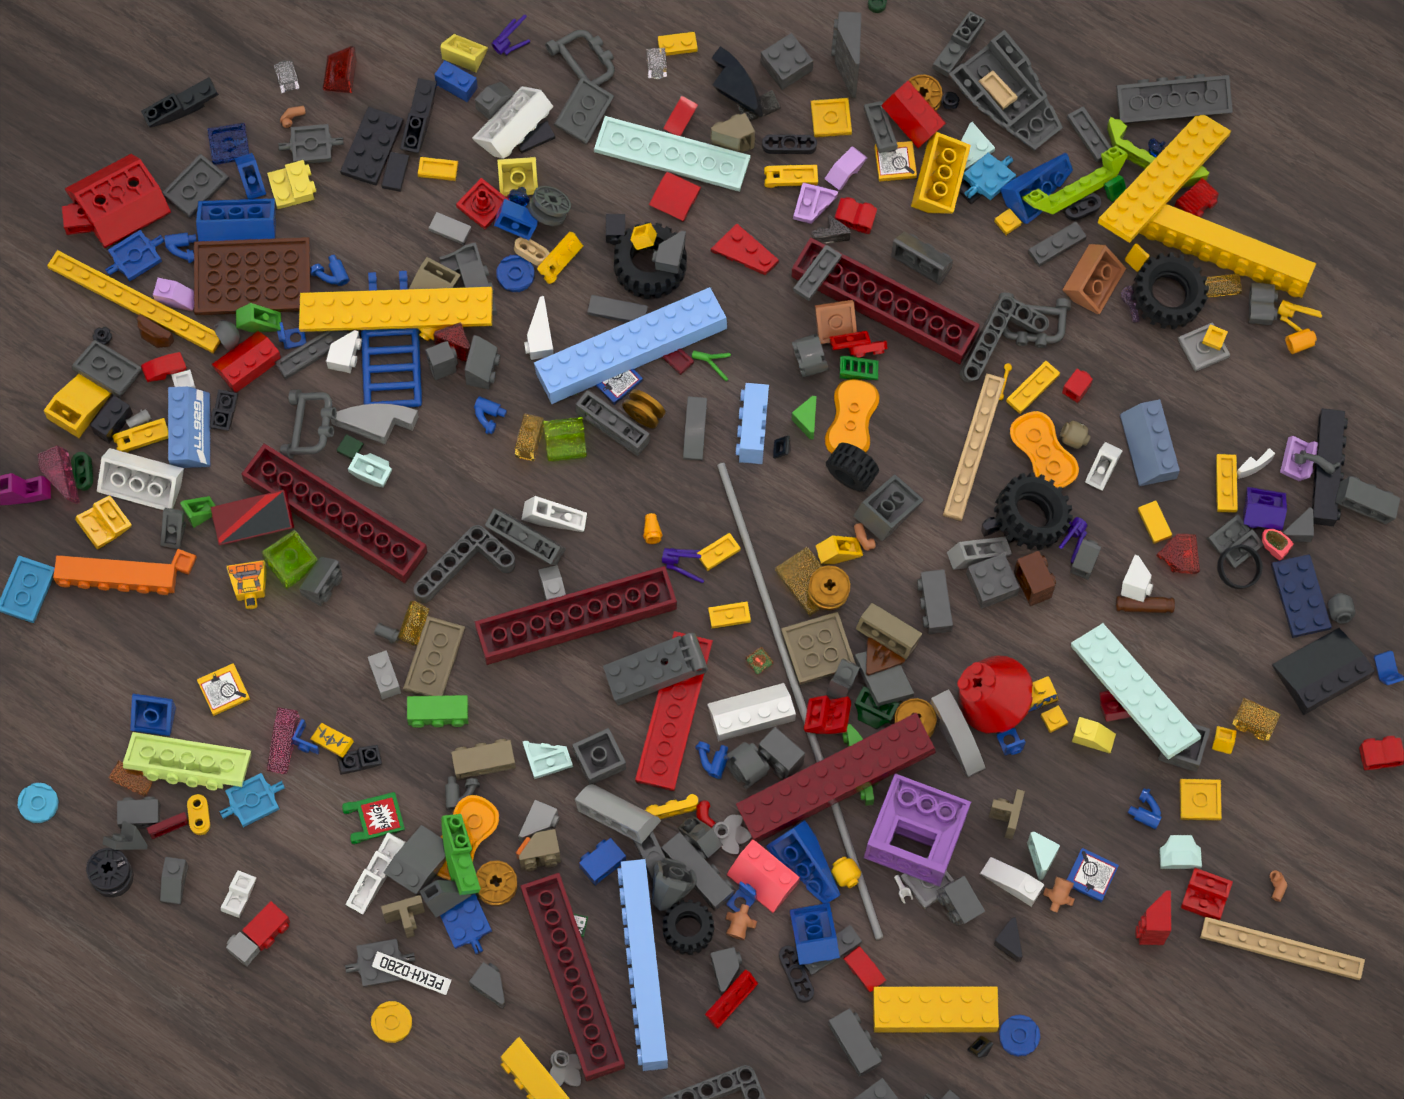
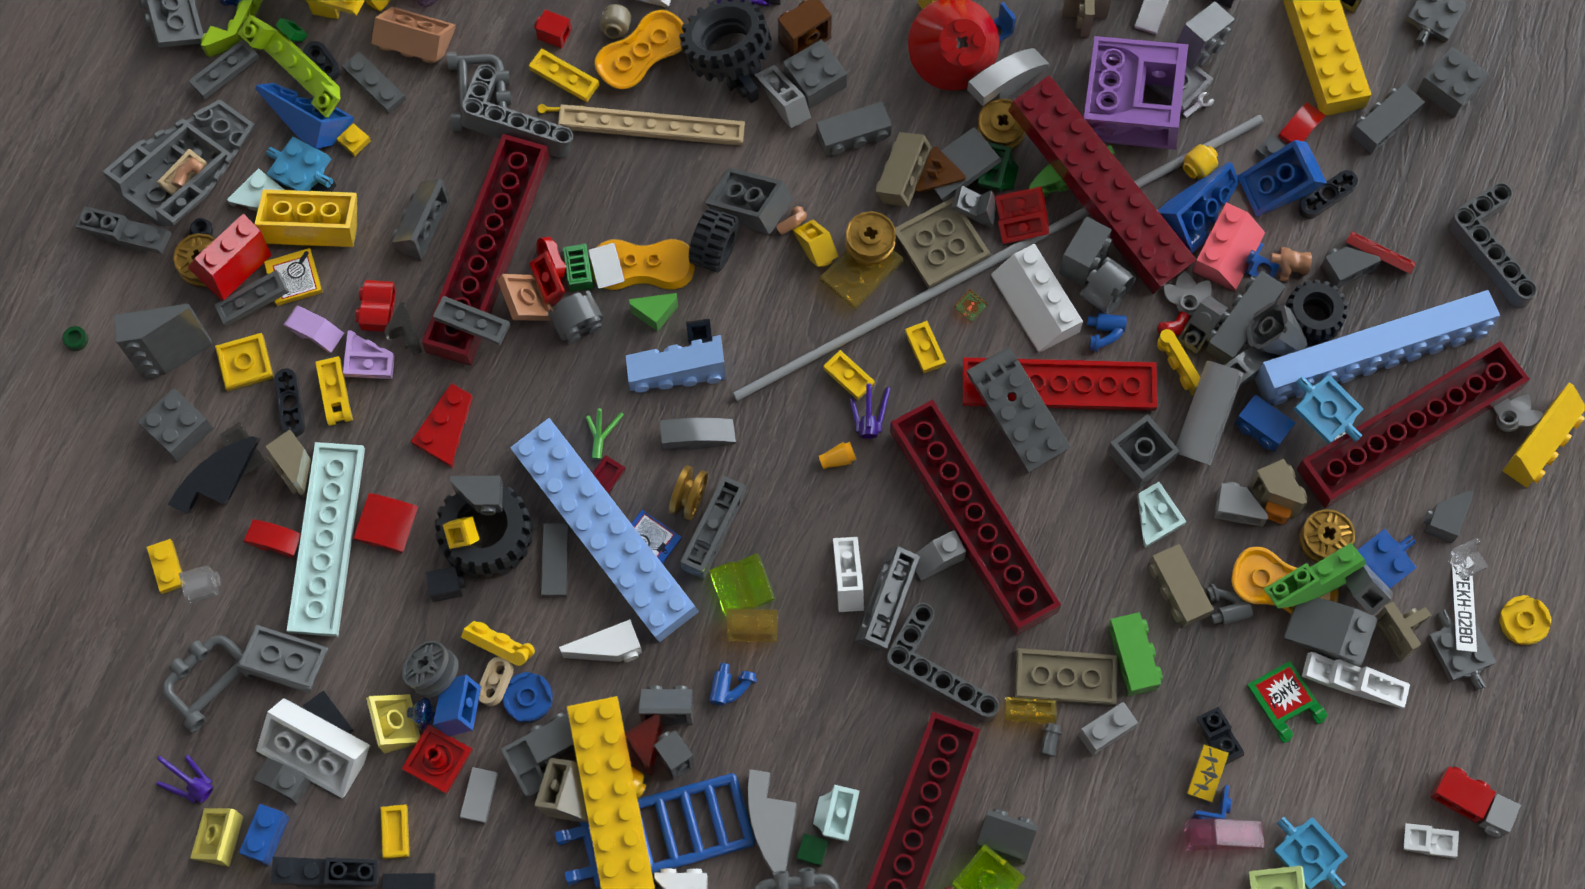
camera: 100 degrees left, 0 degrees up
(450, 989) = (1467, 559): none -> clear panel
(594, 900) = (1328, 409): none -> dark azure plate
(853, 388) = (606, 265): none -> white sticker
(995, 88) = (184, 169): none -> nougat arm

